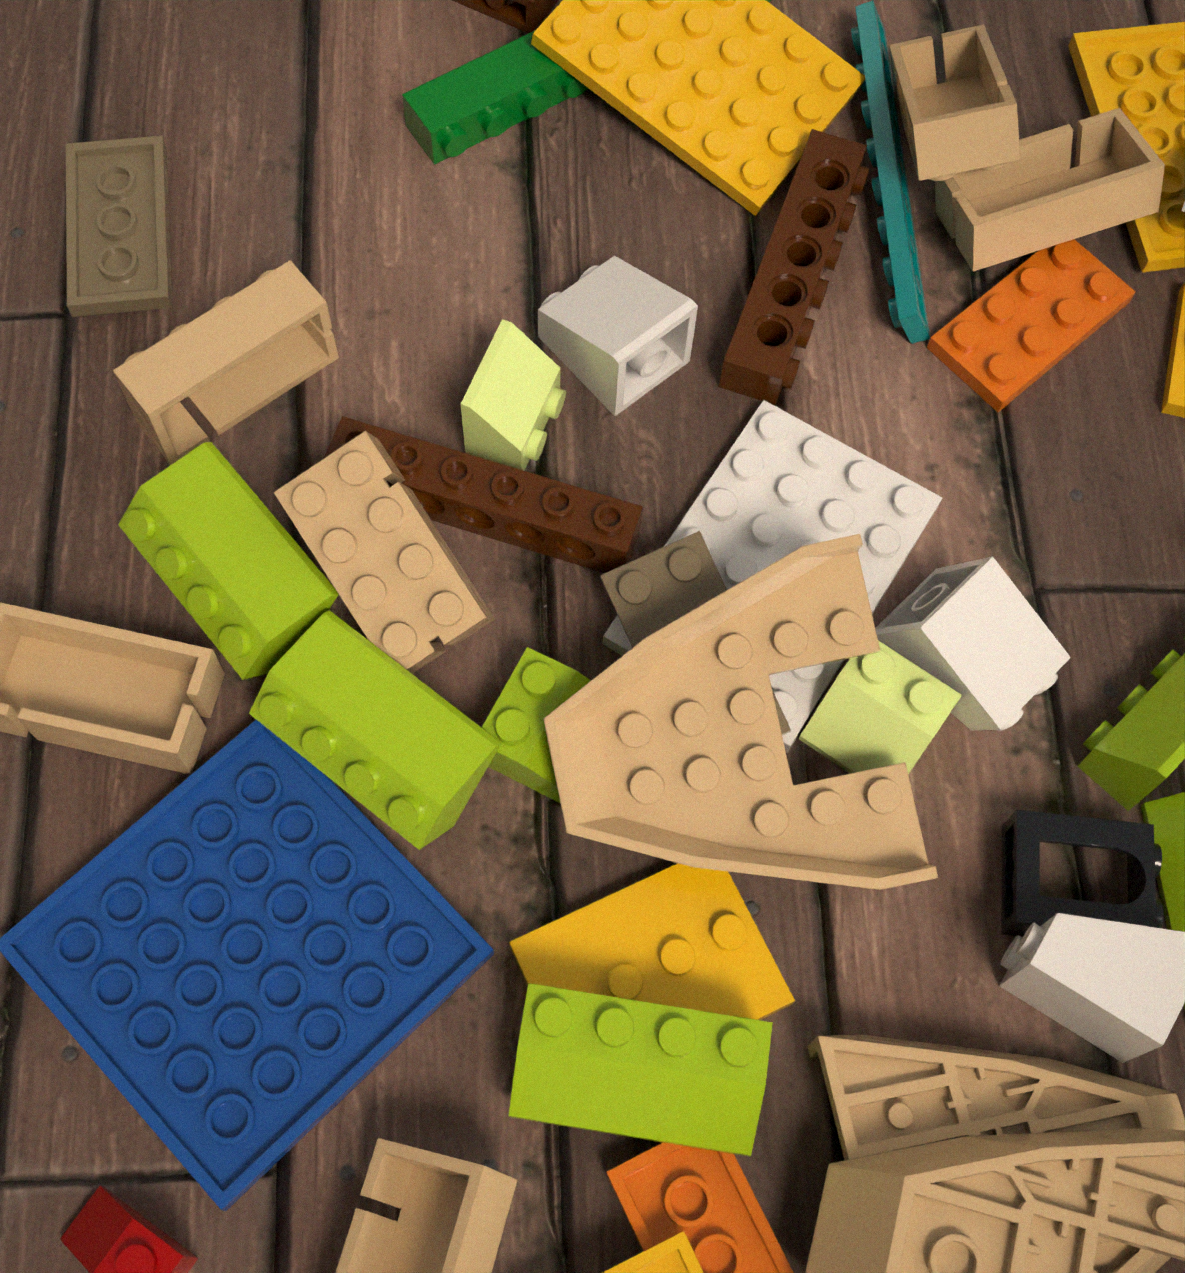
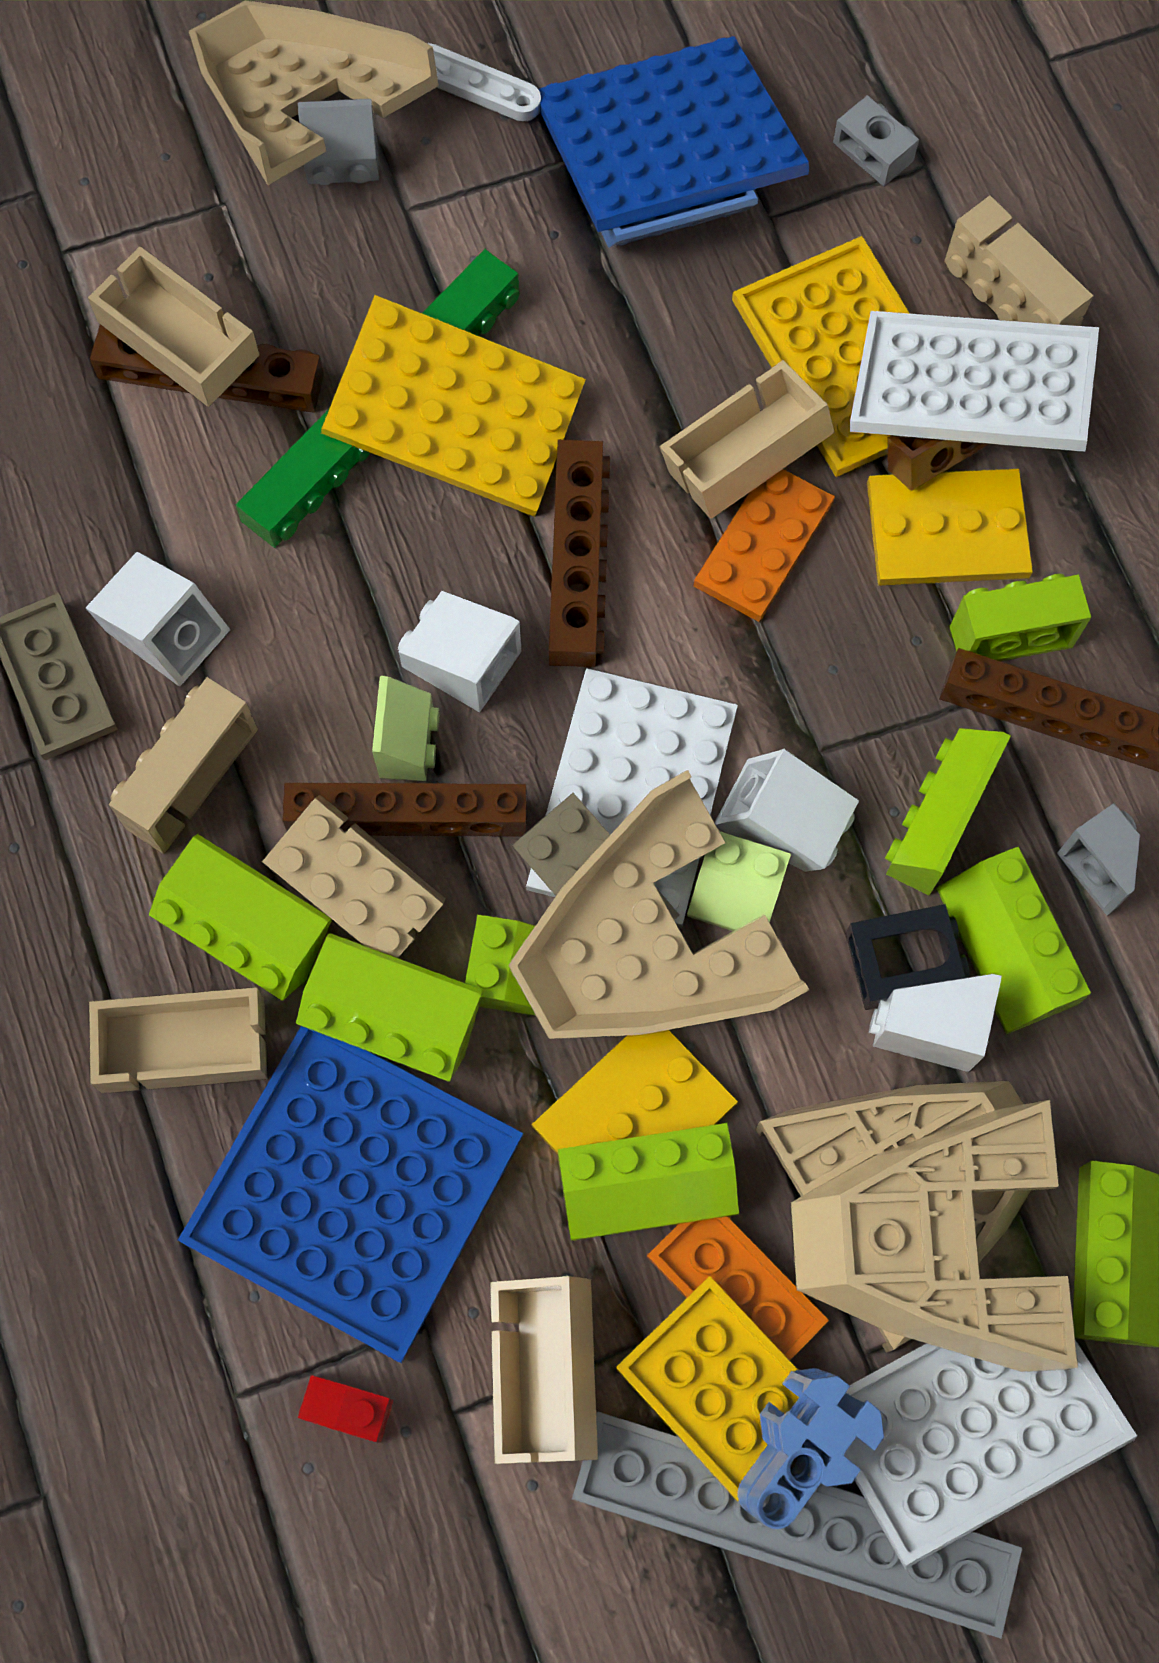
camera: 15 degrees left, 5 degrees up
(268, 194) = (159, 617): none -> white slope
(891, 185) = (630, 462): teal plate -> none
(959, 122) = (661, 396): tan piece -> none

